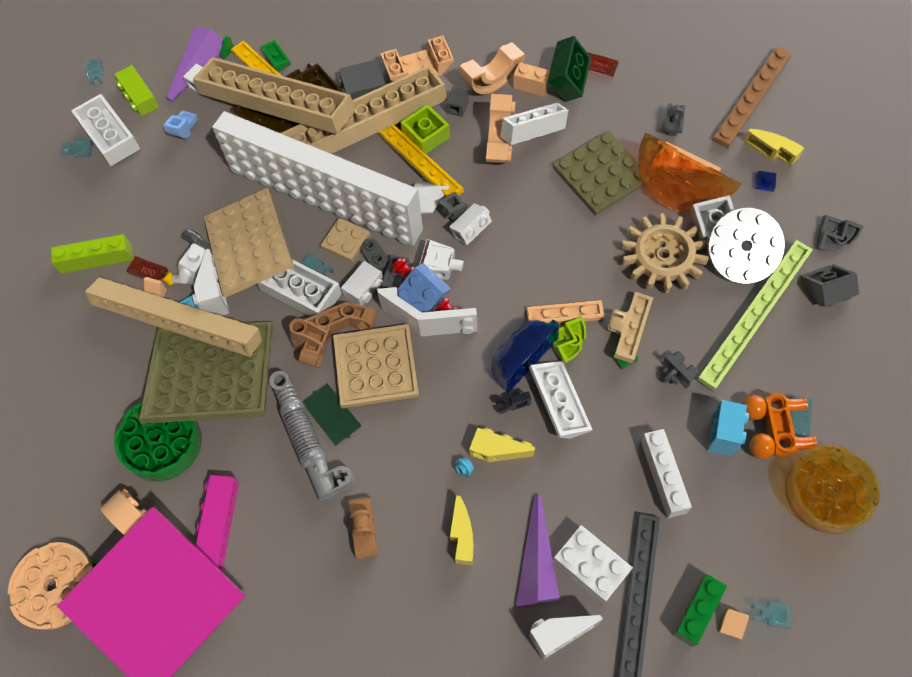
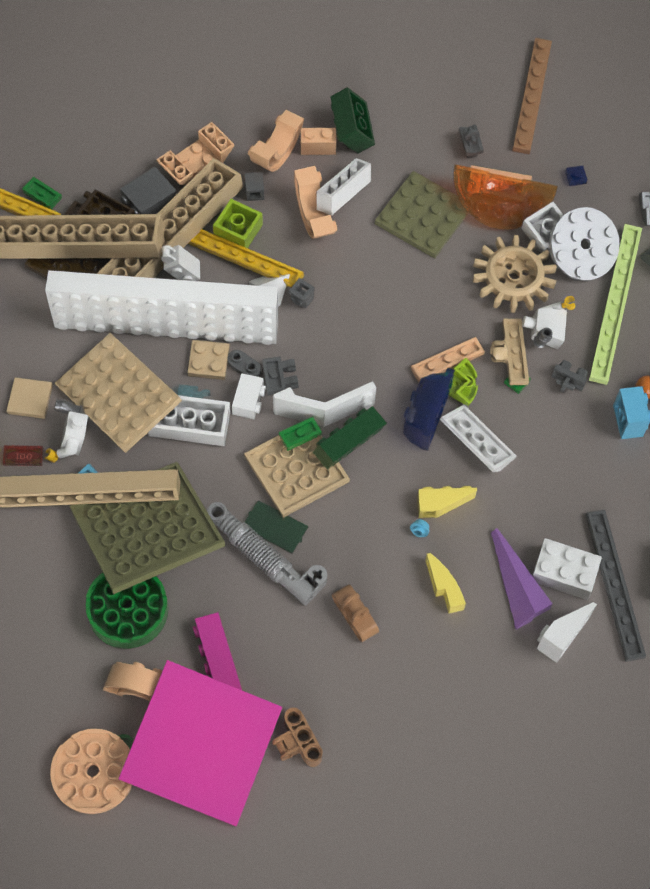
camera: 30 degrees left, 0 degrees up
(154, 287) = (42, 467): light nougat slope -> none
(176, 221) = (29, 398): none -> tan tile
(208, 289) = (107, 452): white slope -> none
(239, 634) = (291, 742): none -> medium nougat piece
(312, 338) = (226, 461): medium nougat connector -> none
(356, 146) = (180, 263): none -> white brick
(390, 334) = (300, 433): none -> green plate
(422, 287) = (311, 379): medium blue brick -> none
(434, 354) = (350, 437): none -> dark green brick
(440, 259) = (310, 350): white torso -> none
(471, 223) = (325, 304): white brick -> none
(515, 402) = (442, 452): black plate -> none
(603, 64) = (379, 104): clear red tile -> none
(665, 473) = (595, 470): white brick -> none
(679, 311) = (549, 323): none -> white torso
(774, 146) = (571, 139): light yellow slope -> none

